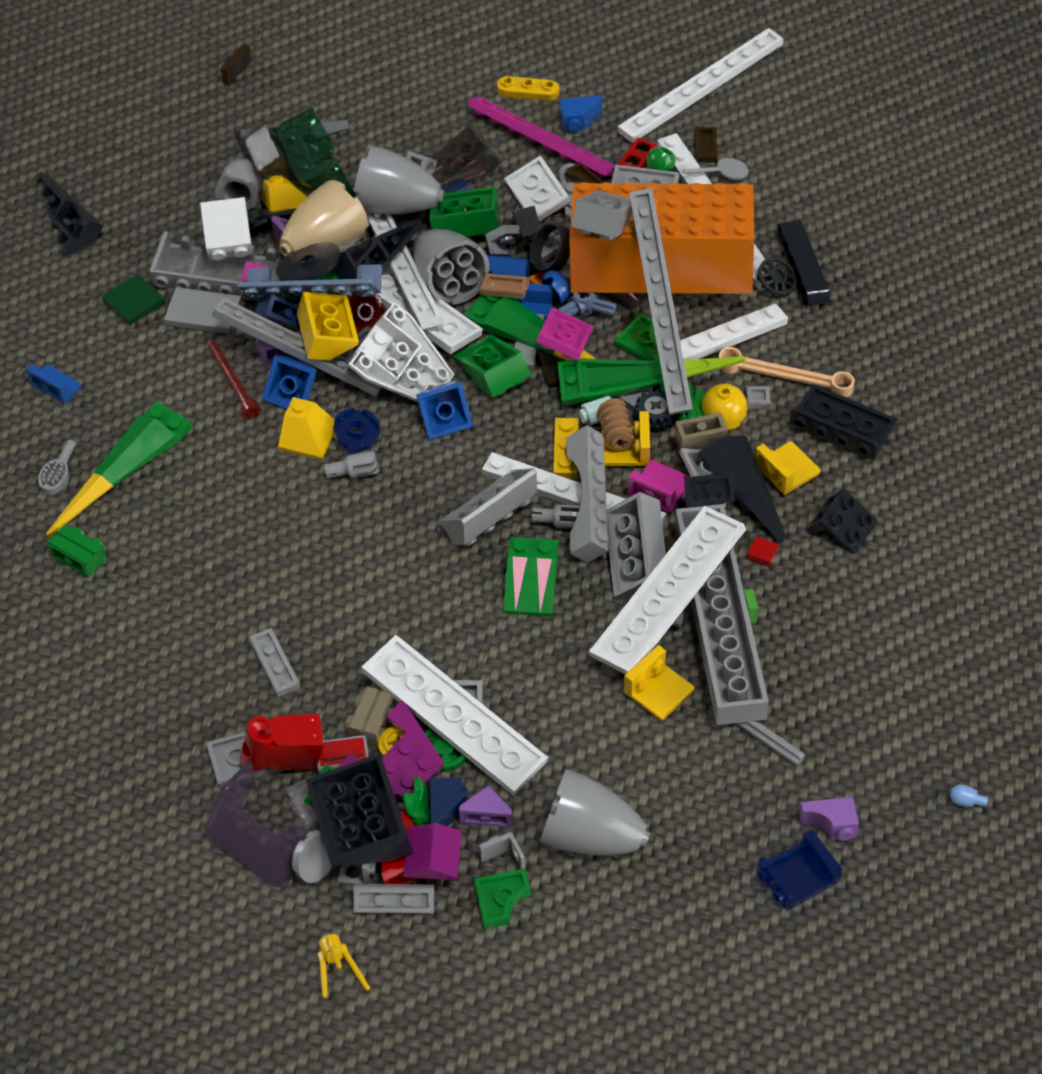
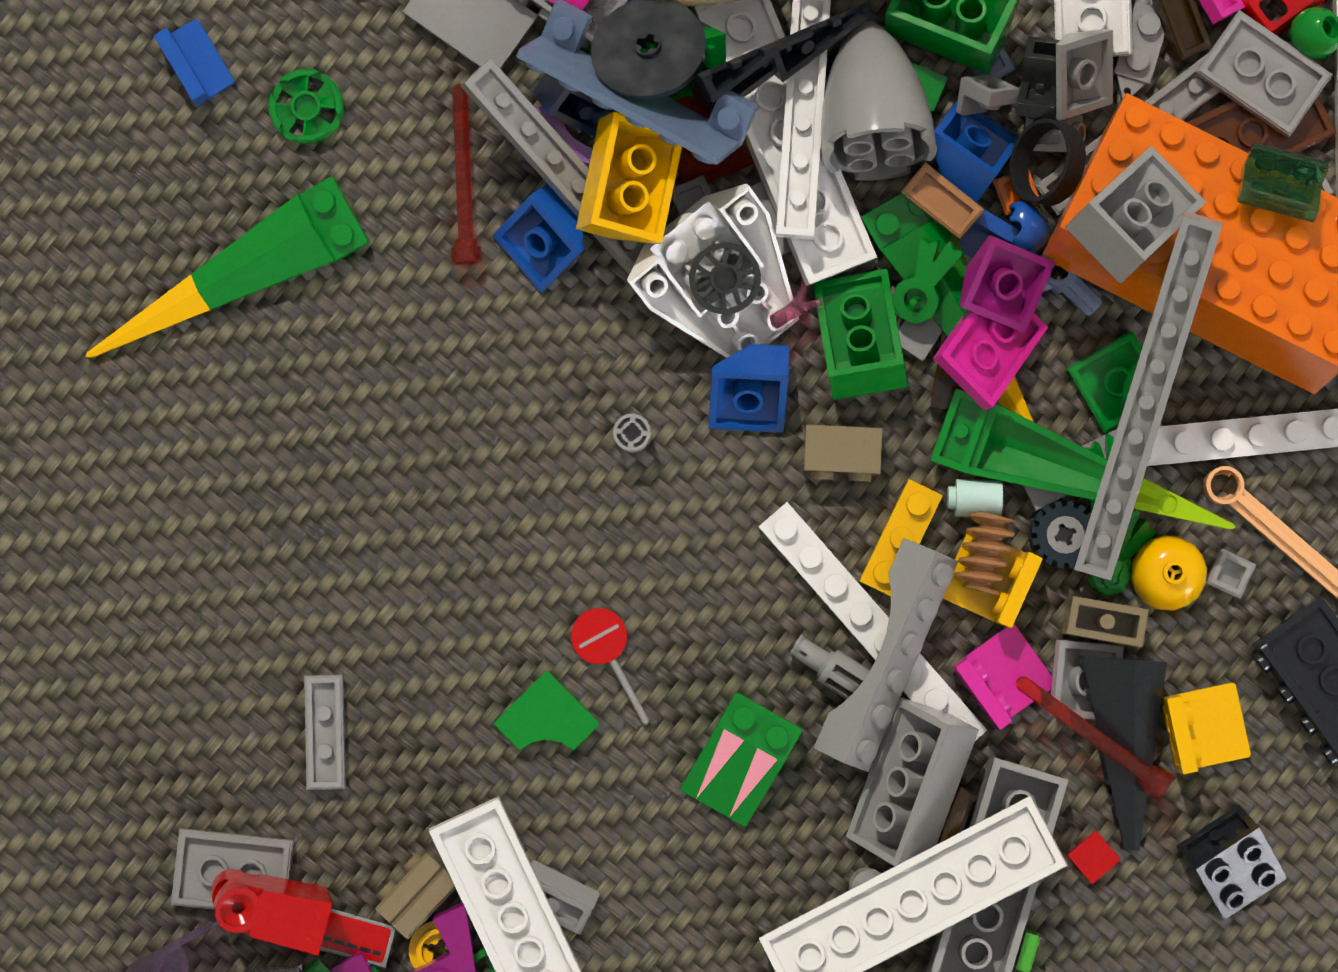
camera: 25 degrees right, 35 degrees up
(55, 473) = (138, 243): light grey piece -> none
(77, 550) = (117, 412): green brick -> none
(127, 380) = (306, 106): none -> green piece
(306, 429) = (533, 336): yellow slope -> none
(351, 440) = (615, 350): clear blue plate -> none
(354, 465) = (573, 437): light grey arm -> none
(386, 452) = (632, 439): none -> light grey wheel
(402, 353) = (724, 278): none -> pearl dark grey wheel
(405, 602) = (547, 713): none -> green tile
(420, 556) = (599, 639): none -> red piece
(449, 363) = (795, 308): none -> clear pink bar
(490, 506) = (734, 612): light grey slope -> none
(510, 417) = (842, 451): none -> dark tan brick
(514, 330) = (917, 296): none -> green piece
(549, 207) = (1084, 72): none -> light grey slope
(557, 301) = (1005, 283): none -> magenta slope
(673, 176) = (1282, 182): none -> clear green bracket
(708, 490) = (1054, 747): black bracket -> none
(770, 490) = (1154, 779): none -> clear red piece

